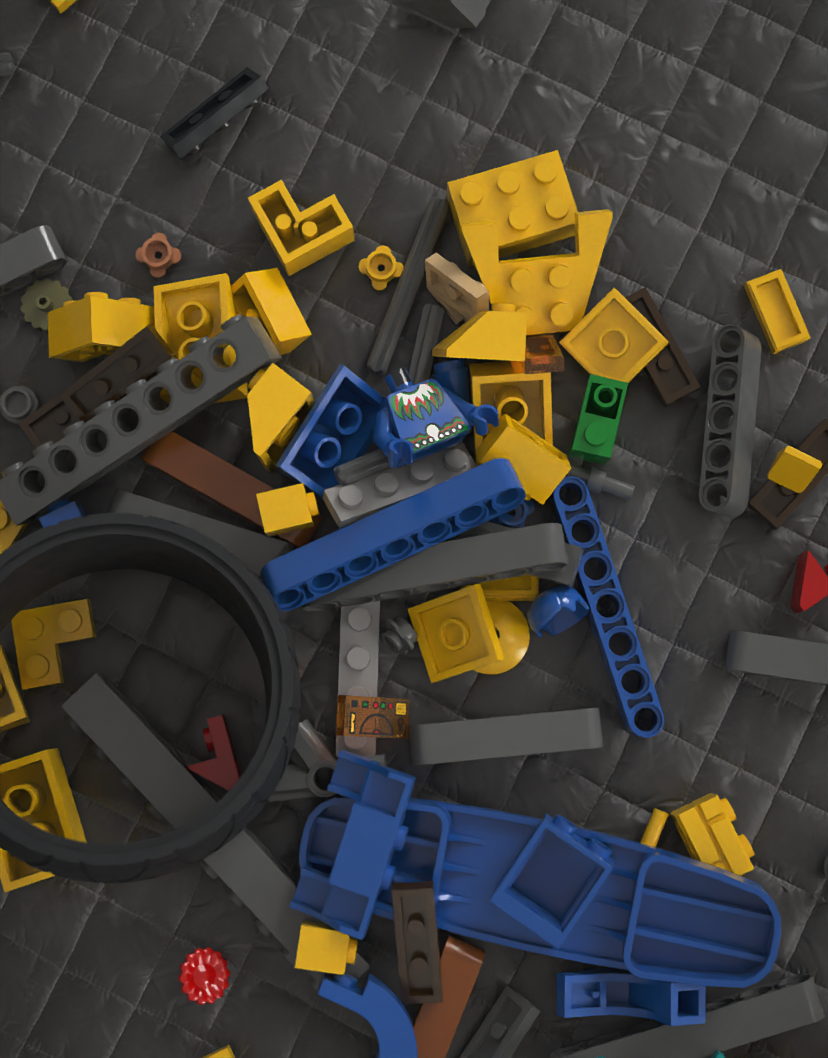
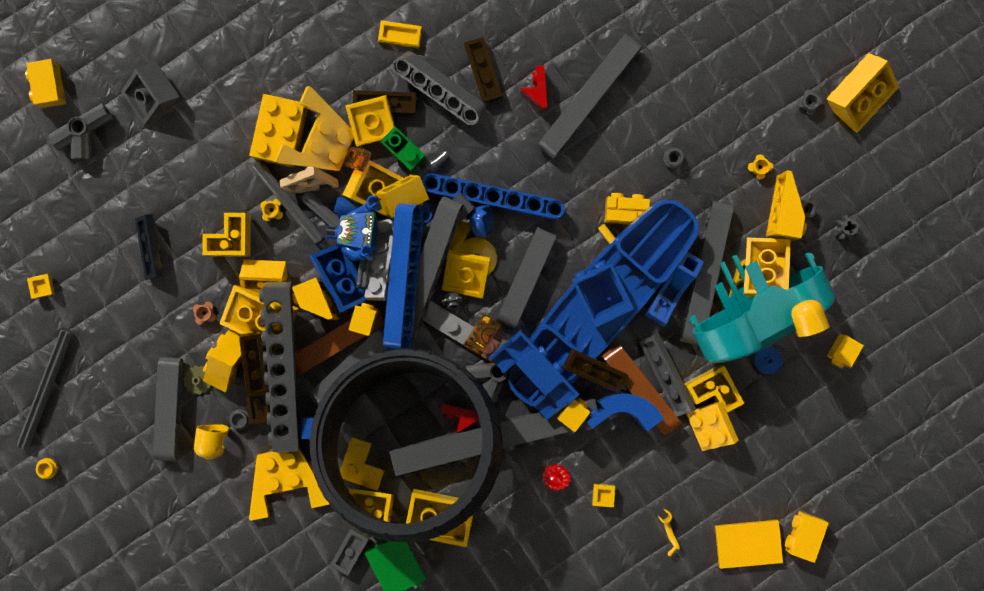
camera: 60 degrees left, 5 degrees up
(488, 335) = (335, 179): yellow slope -> none
(793, 469) = (479, 72): yellow slope -> none

